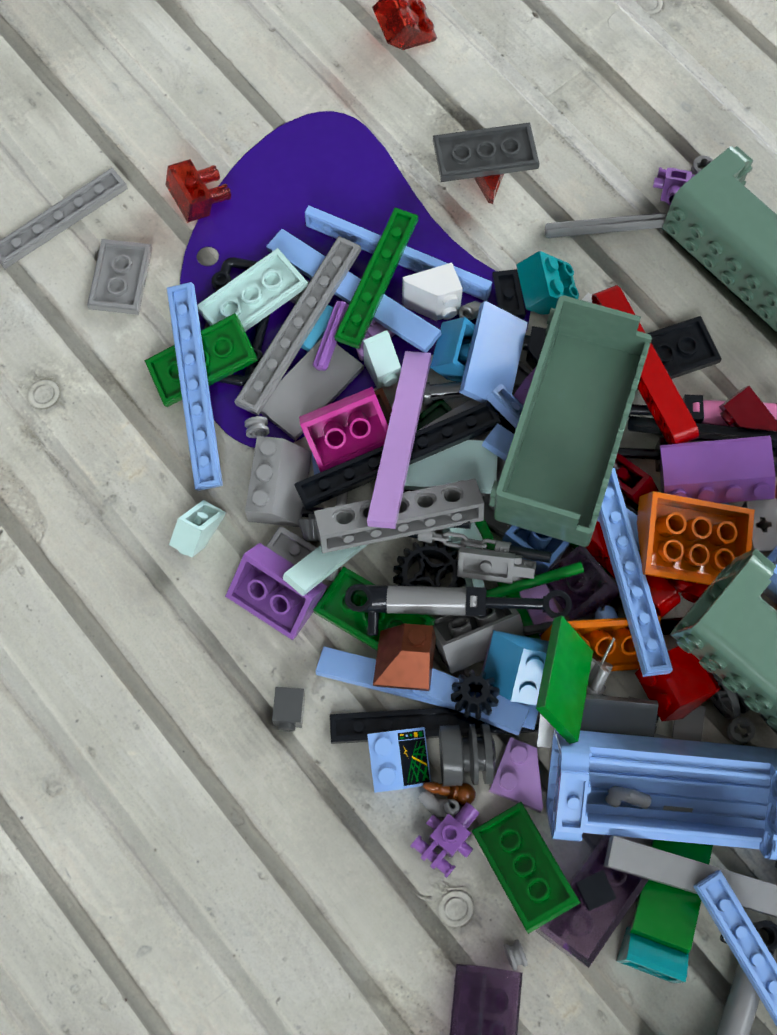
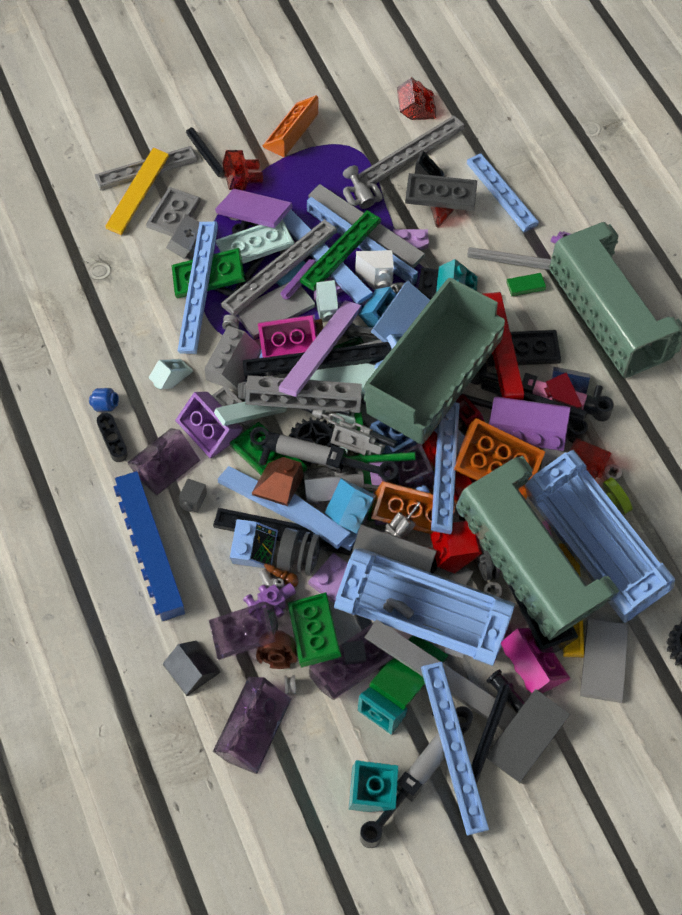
camera: 15 degrees right, 10 degrees down
(58, 258) = (137, 191): none -> yellow tile
(116, 595) = (104, 400): none -> blue head
(126, 637) = (113, 429): none -> black beam
(135, 172) = (205, 152): none -> black axle
(149, 312) = (184, 237): none -> light grey brick
(231, 665) = (164, 460): none -> clear purple slope
(233, 243) = (254, 208): none -> medium lavender tile
(244, 102) = (292, 126): none -> orange slope
(253, 802) = (149, 546): none -> blue brick
(370, 968) = (190, 666): none -> slope
(373, 177) = (362, 192): none -> light grey piece
(417, 102) = (411, 151): none -> light grey tile
(423, 239) = (381, 235): none -> light grey tile
(432, 901) = (244, 630): none -> clear purple slope
(452, 118) = (427, 166): none -> black slope
(461, 235) = (415, 237): none -> lavender wing
(475, 684) = (315, 513): black gear -> none
(483, 909) = (279, 653): none -> copper cylinder
(563, 128) = (502, 192): none -> light blue tile
(565, 680) = (375, 512): green tile -> none
(638, 258) = (526, 284): none -> green tile
(734, 380) = (578, 379): none -> dark blue panel

